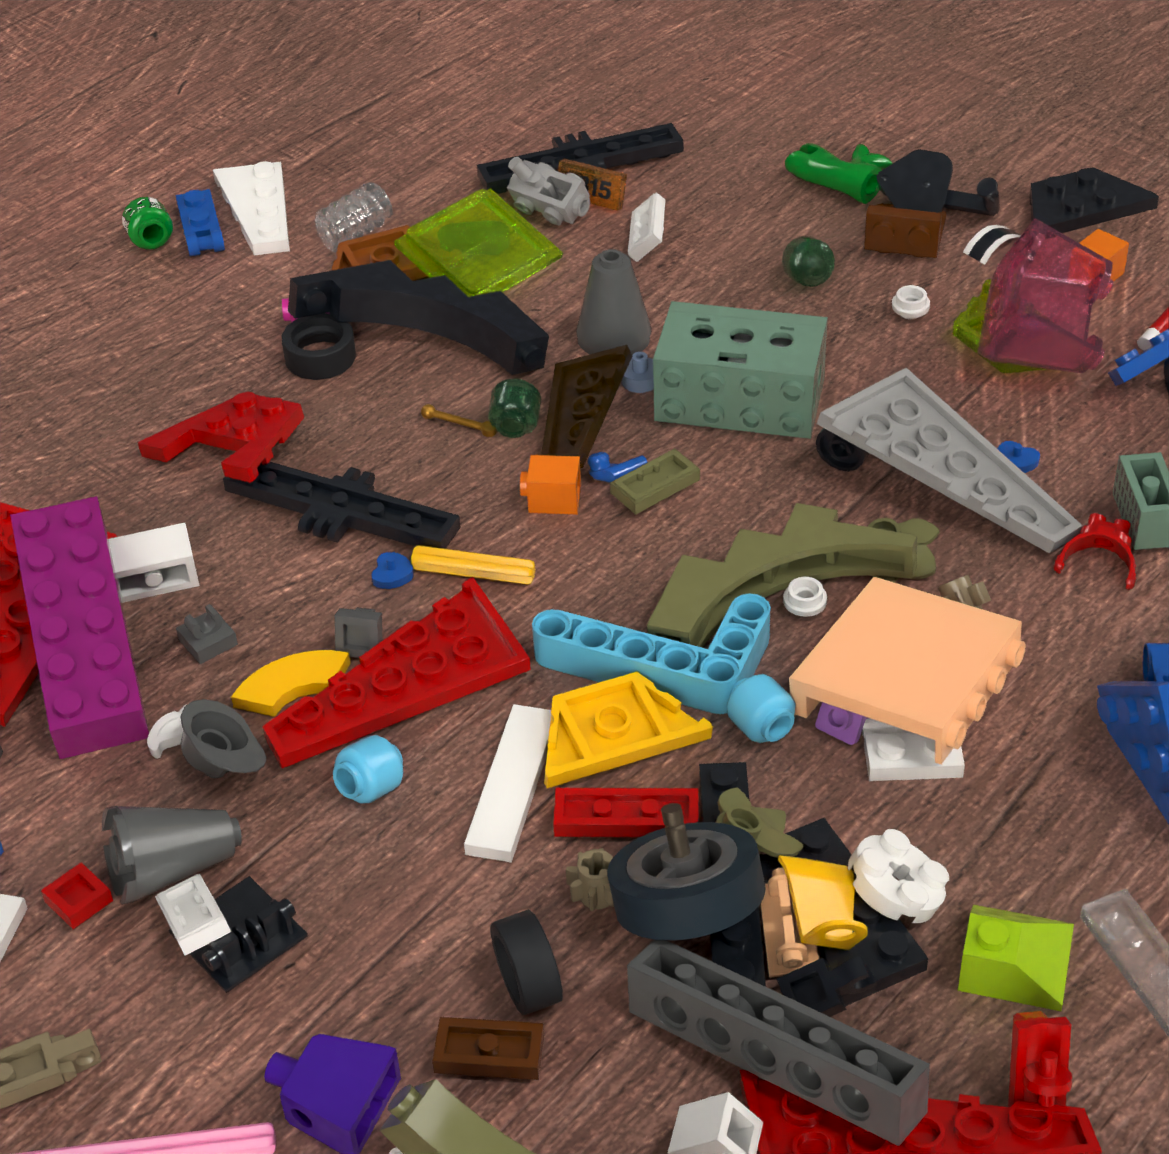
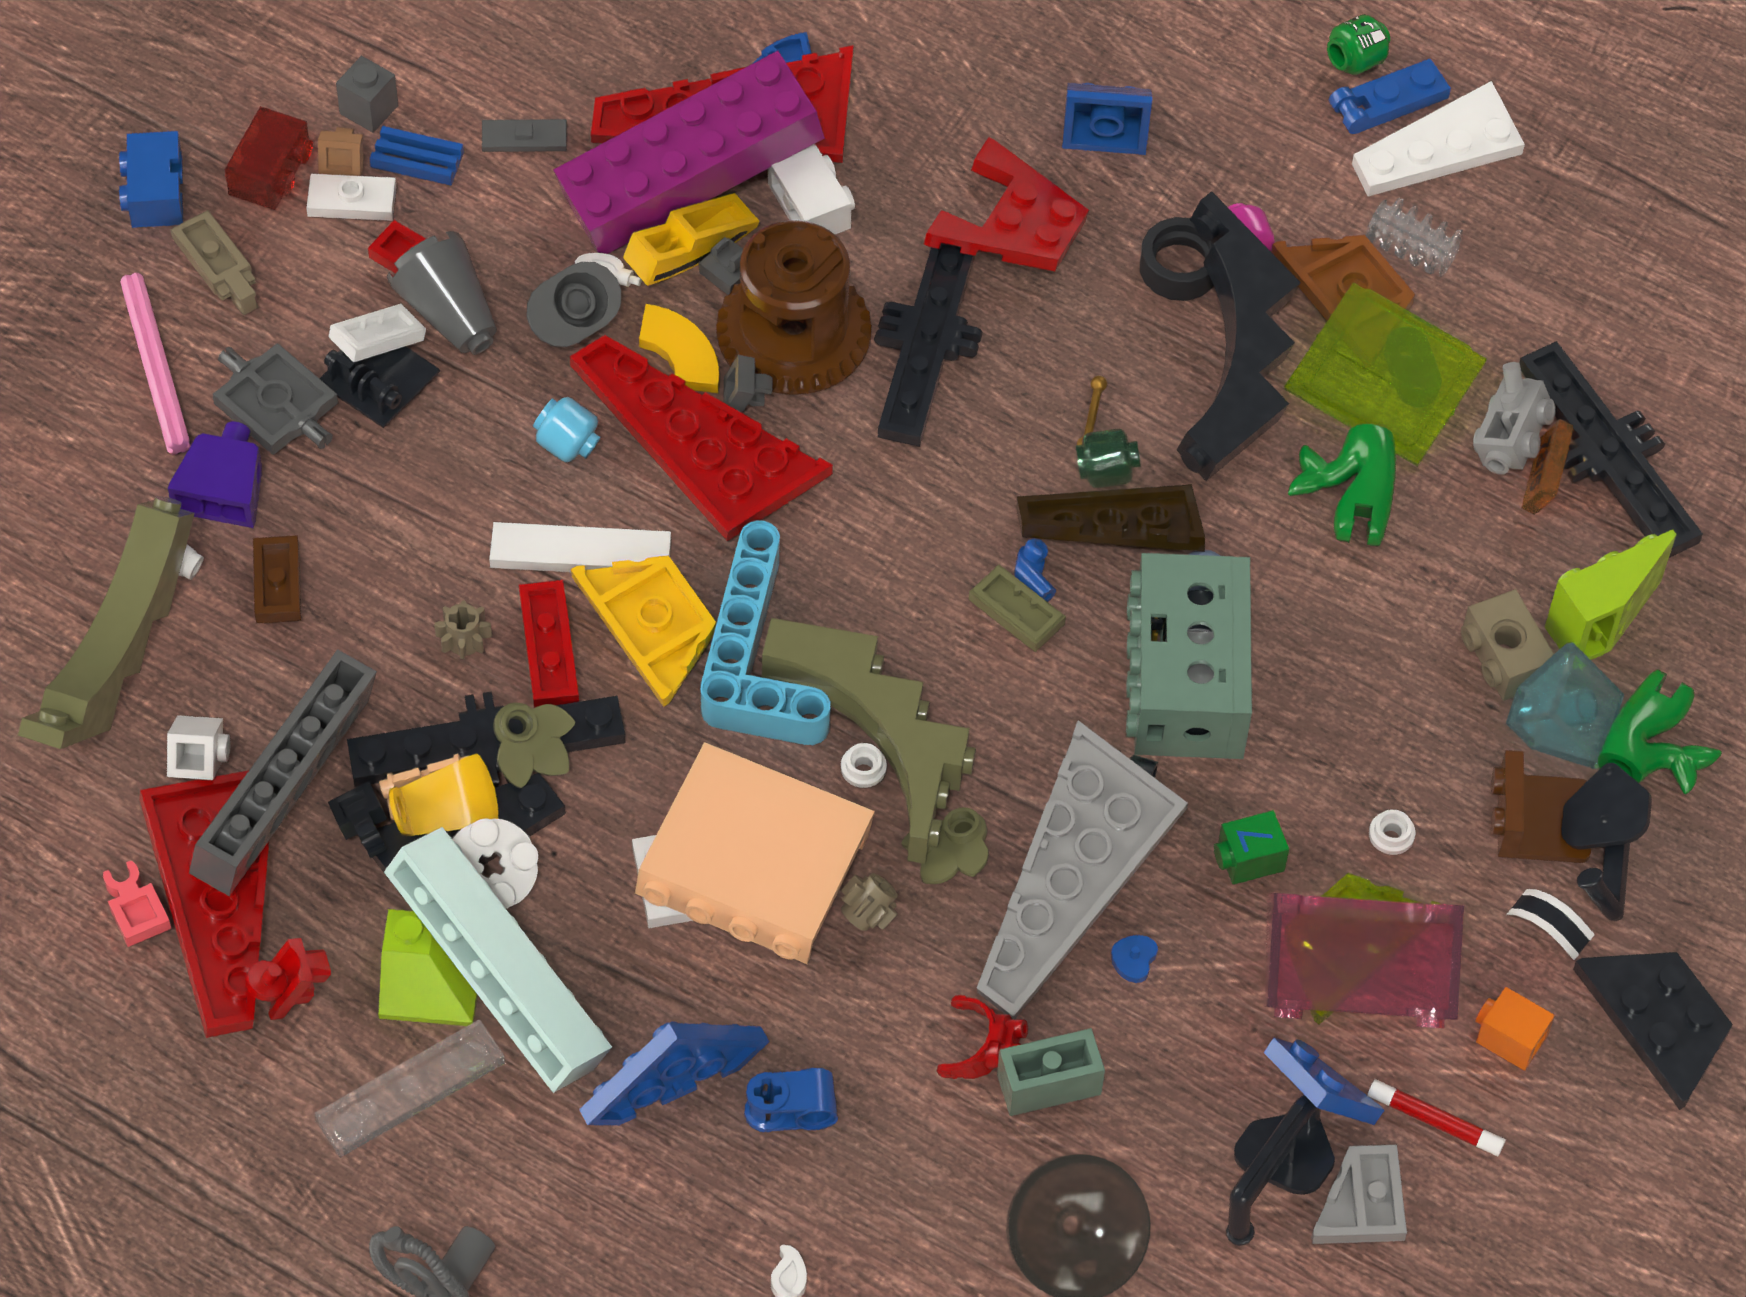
camera: 75 degrees right, 15 degrees up
(155, 362) = (1107, 118): none -> blue slope
(165, 658) = (687, 237): none -> yellow slope
(238, 1029) = (275, 398): none -> dark grey plate
(286, 559) = (784, 289): none -> reddish brown piece
(392, 571) = (848, 402): blue piece -> none
(473, 564) = (863, 467): yellow axle -> none
(526, 962) = (350, 583): black tyre -> none
(551, 269) = (1372, 455): none -> green piece
(552, 484) = (988, 514): orange brick -> none
(613, 307) = (1281, 524): dark grey cone -> none
(646, 227) = (1474, 539): white plate -> none
(686, 879) = (435, 682): black wheel -> none
(729, 159) = (1602, 600): none -> lime slope
(750, 222) = (1506, 622): none -> dark tan brick
(761, 708) = (683, 733): medium azure head -> none
(808, 261) = (1437, 712): clear green head -> none
(817, 203) = (1566, 708): none -> clear light blue slope
(927, 363) = (1251, 847): none -> green brick
(1027, 864) = (497, 959): none -> light aqua brick

